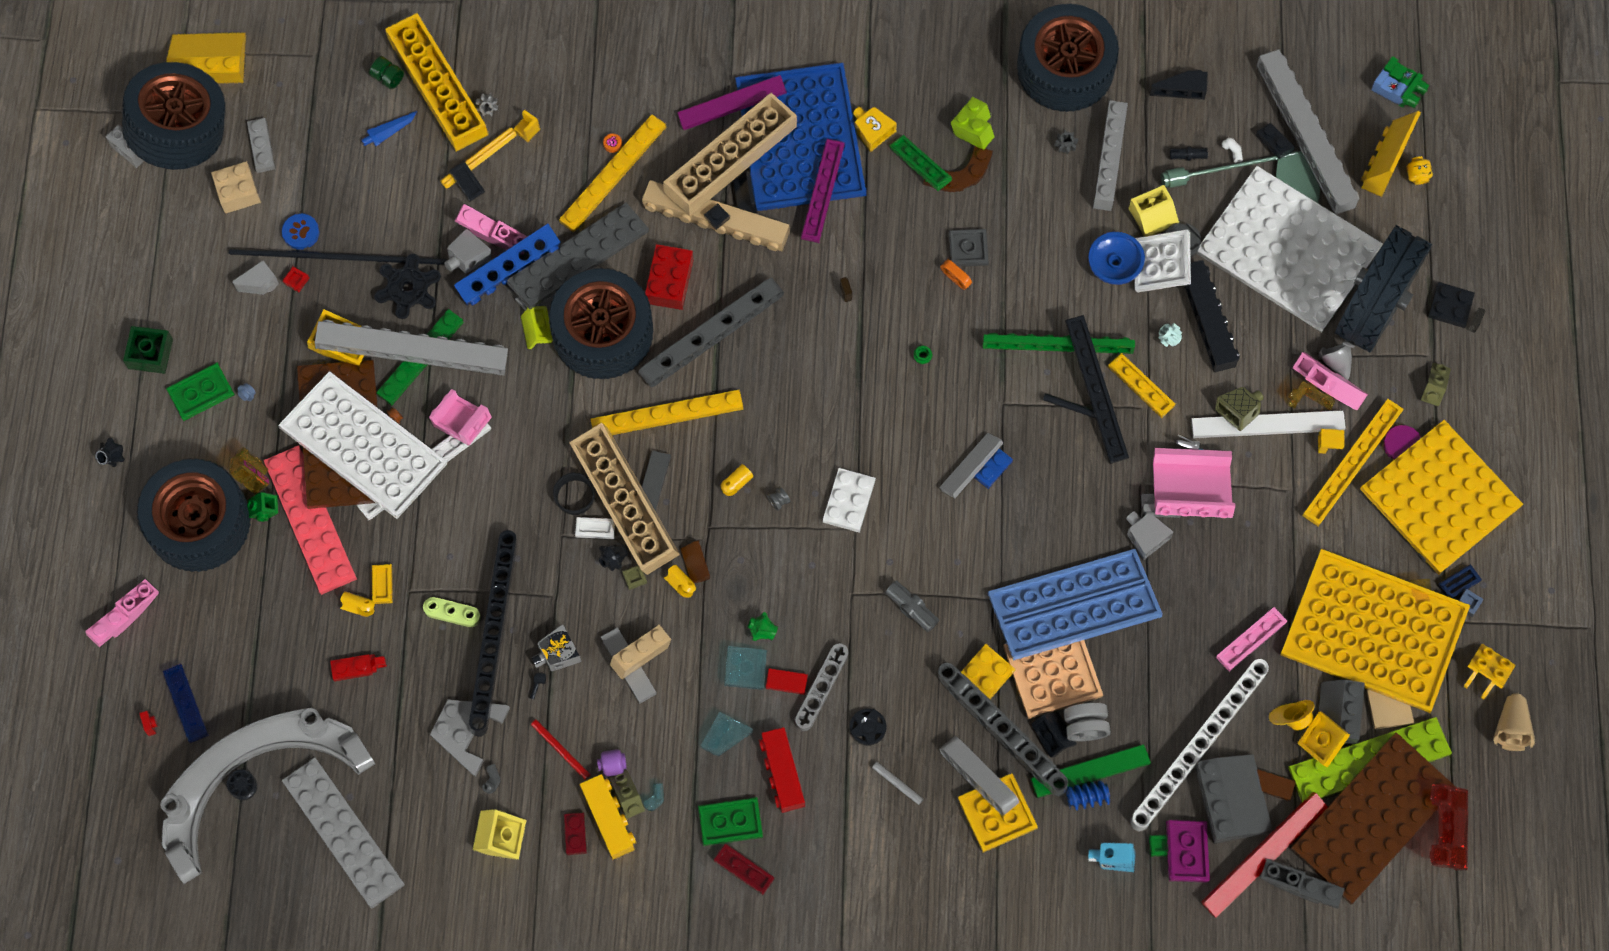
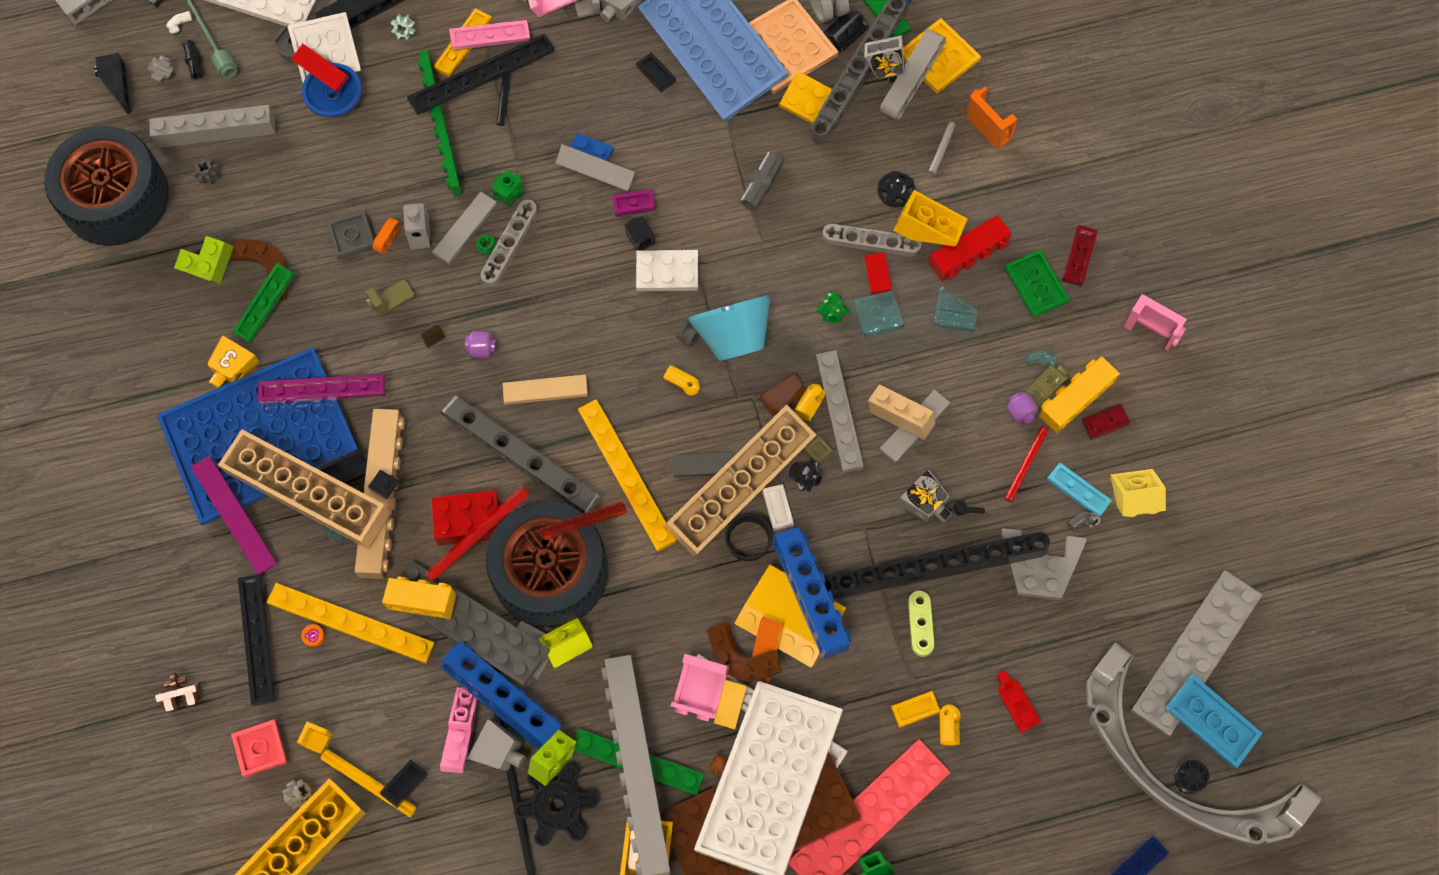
camera: 105 degrees left, 0 degrees up
(278, 817) = (1213, 721): none -> dark azure plate
(438, 438) = (730, 704): none -> yellow tile
(443, 289) = (551, 757): none -> lime brick
(450, 515) = (827, 644): none -> blue brick
(459, 457) = (740, 666): none -> reddish brown plate
(469, 473) = (767, 638): none -> orange tile
(490, 502) = (777, 601): none -> yellow slope
(521, 786) = (1079, 490): none -> medium azure tile
(534, 86) = (259, 748): none -> coral plate
(602, 37) = (189, 693): none -> hips
(608, 221) = (419, 597): none -> yellow brick
(617, 349) = (583, 520): none -> clear red axle
(623, 100) = (256, 640): none -> black plate
(645, 275) = (478, 532): none -> red tile
(652, 911) = (1157, 319): none -> bright pink panel
(665, 606) = (839, 411): none -> light grey plate
(766, 529) = (734, 328): none -> medium azure cone
(767, 369) = (545, 389): none -> tan tile
(816, 739) = (929, 221): none -> yellow slope
(825, 325) = (480, 344): none -> medium lavender head
(891, 484) = (639, 234): none -> black brick
(893, 262) = (389, 298): none -> olive bracket
(906, 827) = (988, 122): none -> orange panel
(922, 382) = (509, 252): none -> light grey beam
(924, 488) = (633, 202): none -> magenta plate
(945, 341) = (464, 228): none -> light grey tile
(957, 299) = (417, 220): none -> light grey torso
(971, 383) = (507, 187): none -> green brick
(993, 752) = (886, 57): none -> torso
(1059, 547) = (656, 72): none -> black tile
(1138, 250) = (319, 68): none -> red tile
(1138, 407) = (489, 35): none -> bright pink plate
(1154, 211) = (268, 71): light yellow slope -> none
(1184, 124) = (160, 68): none -> light grey gear

